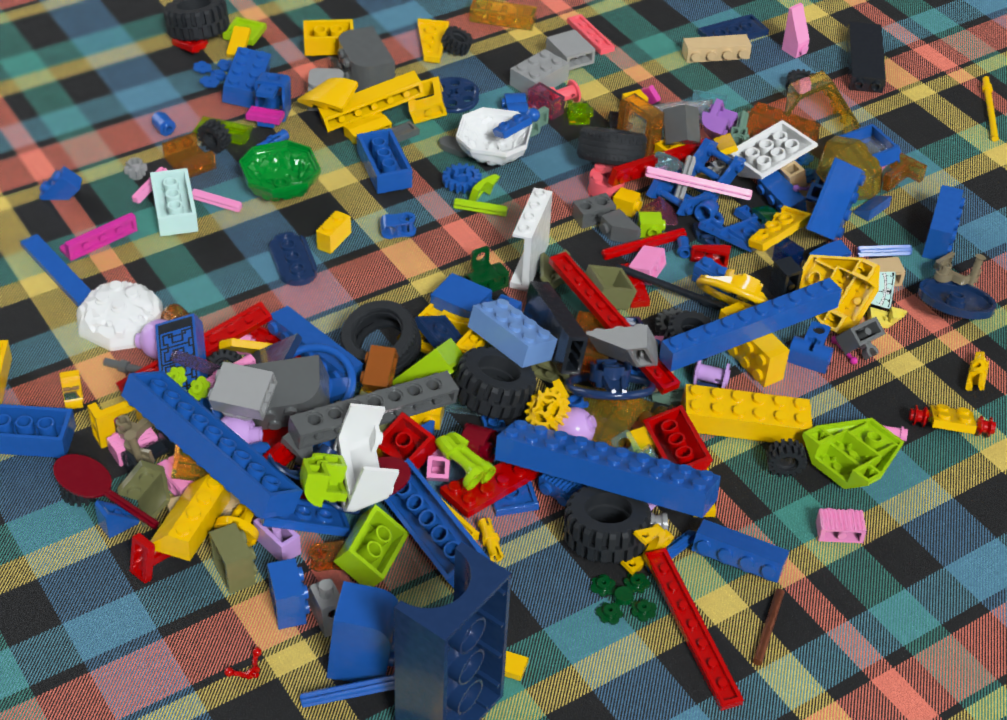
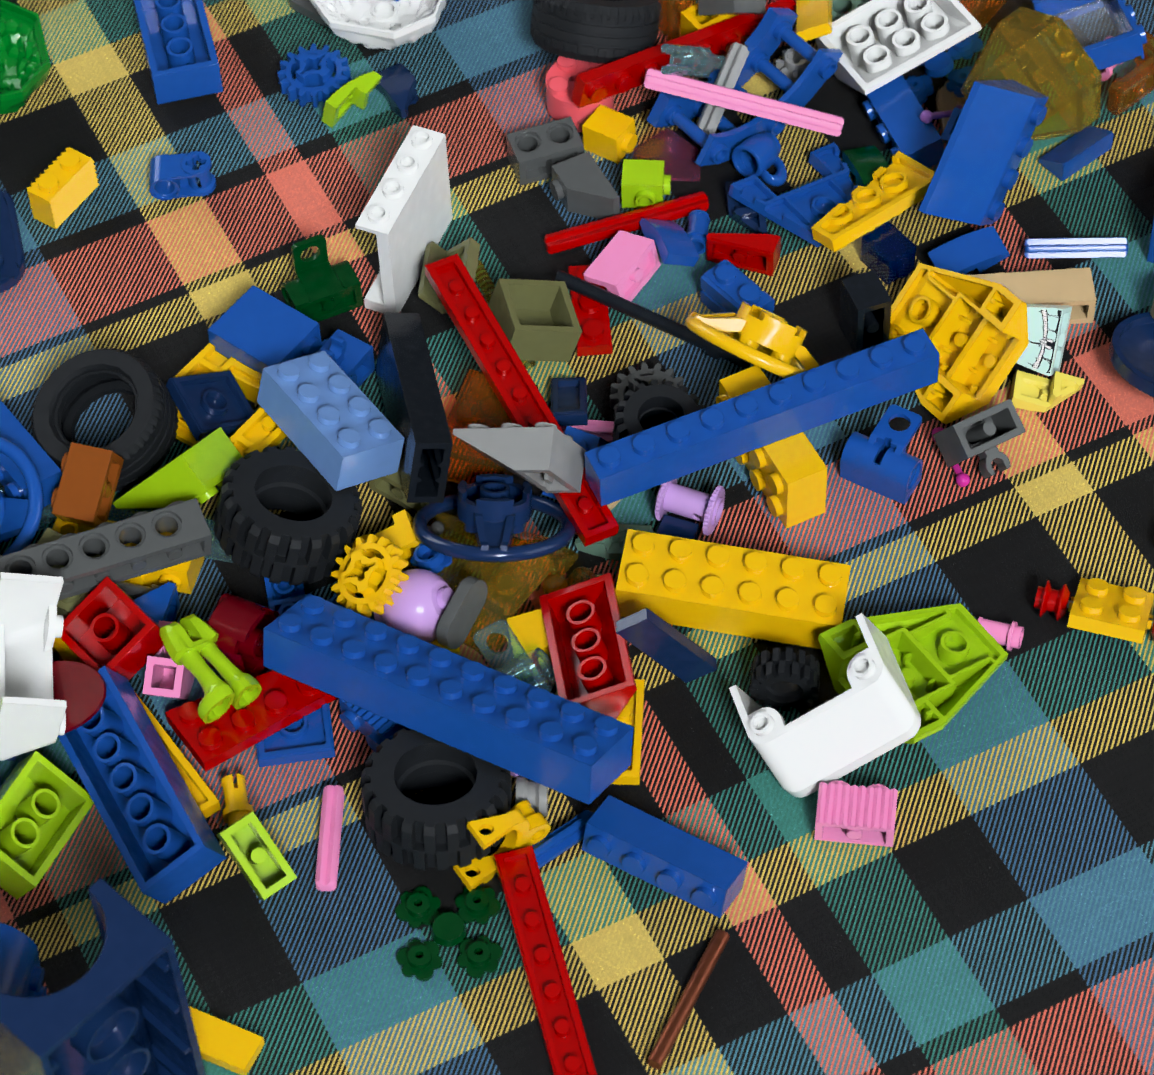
camera: 10 degrees right, 10 degrees up
(480, 207) = (340, 137): lime axle -> none
(508, 183) = (399, 88): none -> dark blue slope
(510, 556) = (256, 856): none -> lime brick
(545, 551) = (329, 838): none -> bright pink axle
(602, 426) = (461, 612): none -> dark grey tile
(672, 250) = (671, 241): none -> blue slope
(720, 440) = (666, 645): none -> dark blue tile
(794, 174) = (930, 86): tan brick -> none
(827, 480) = (844, 730): none -> white windscreen

